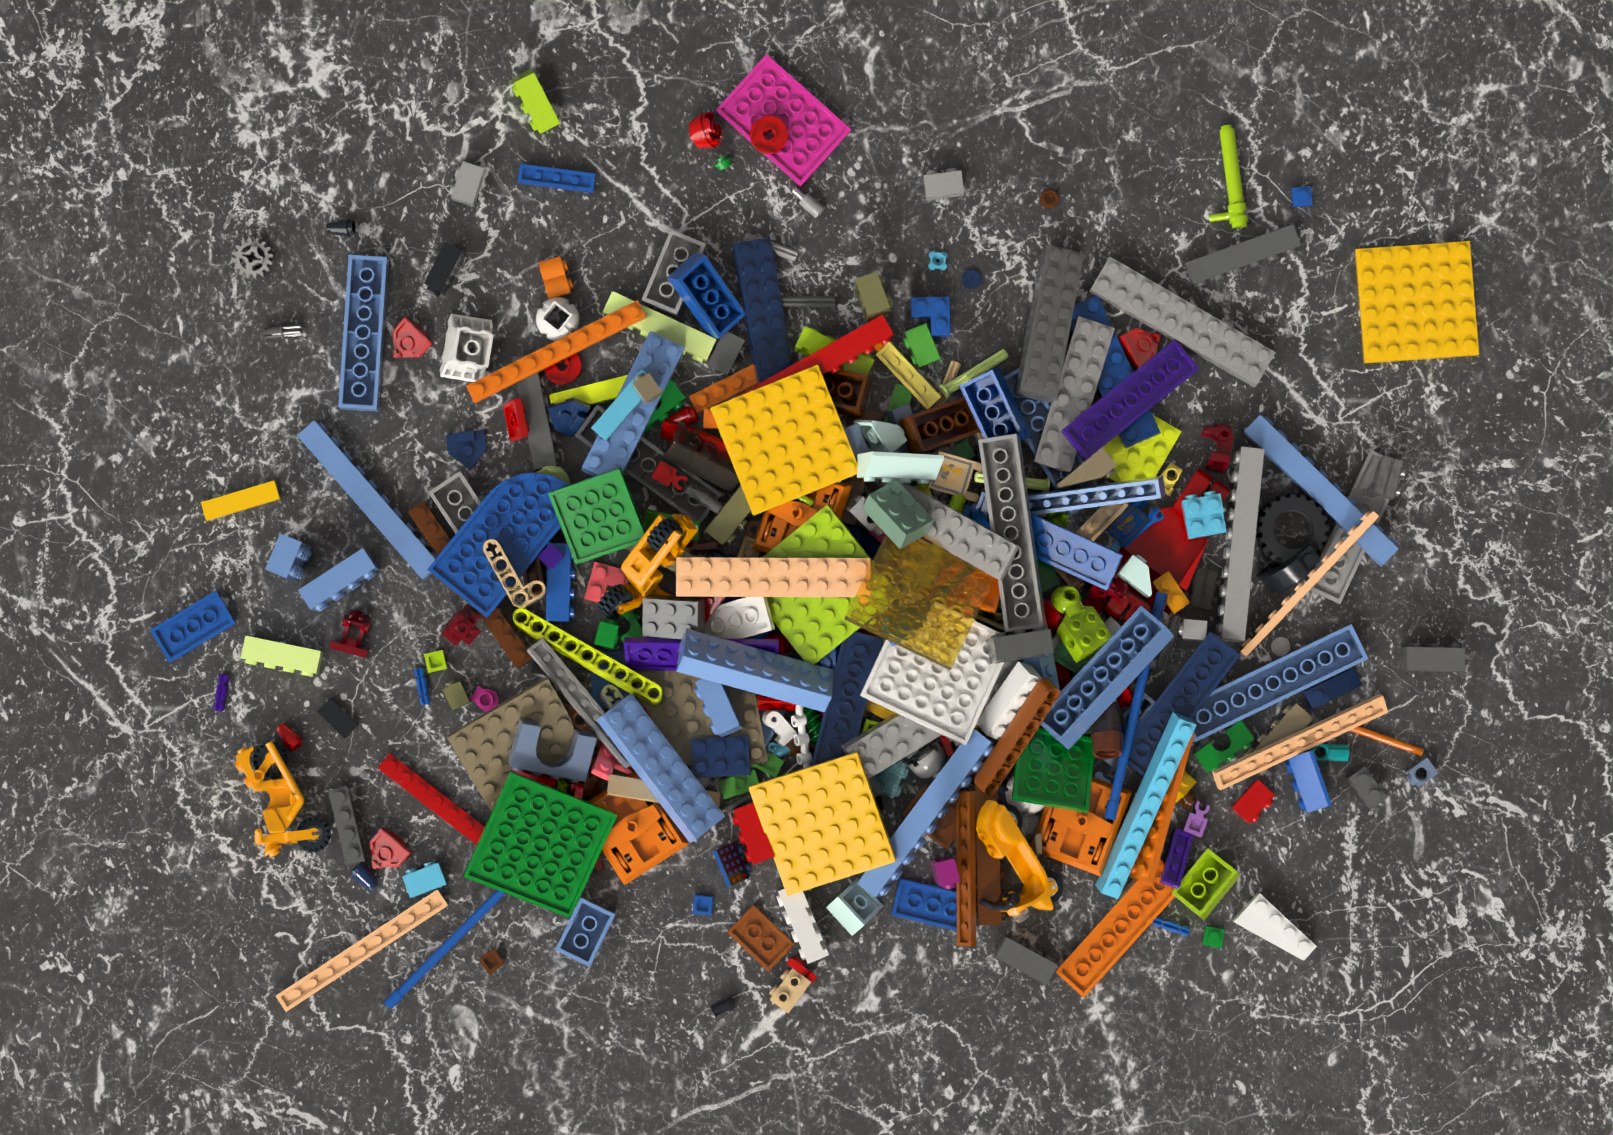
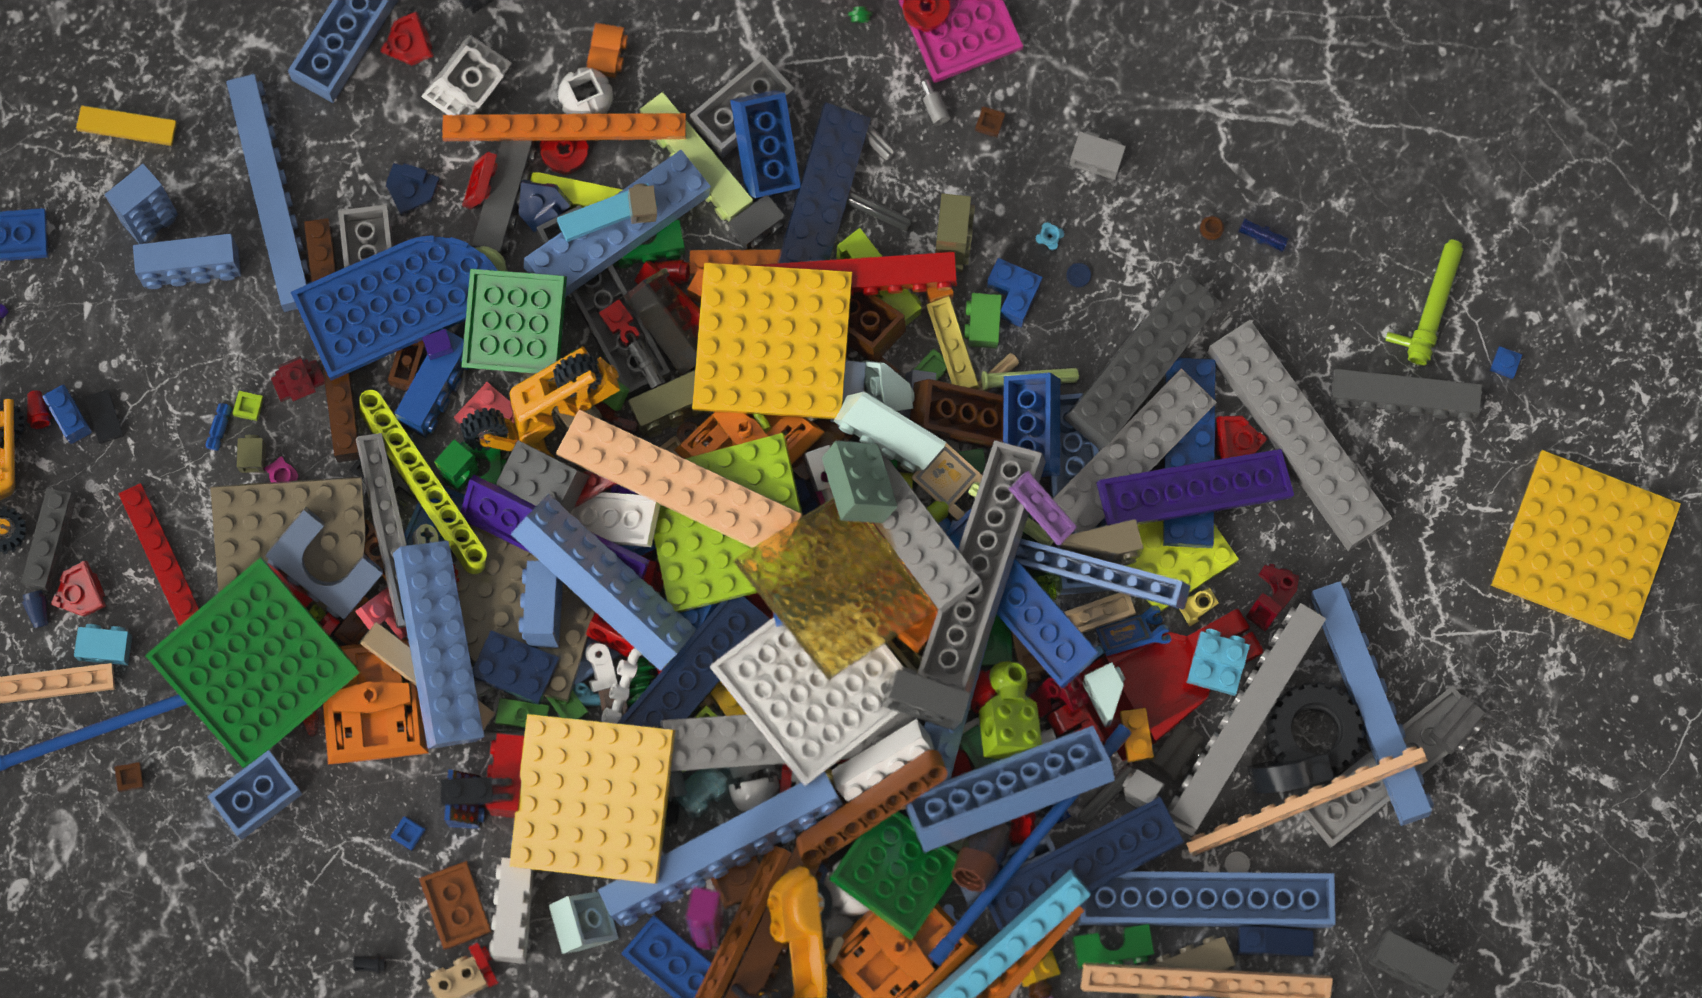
camera: 25 degrees right, 10 degrees down
(281, 654) = (79, 315): yellowish green brick -> none
(312, 730) = (67, 414): none -> blue brick
(352, 646) = (177, 313): dark red tile -> none
(503, 575) = (381, 337): tan beam -> none
(737, 858) = (473, 791): none -> black hinge
(855, 197) = (990, 122): none -> reddish brown plate
(1035, 472) = (1042, 507): none -> medium lavender tile
(1088, 186) = (1263, 235): none -> clear blue pin

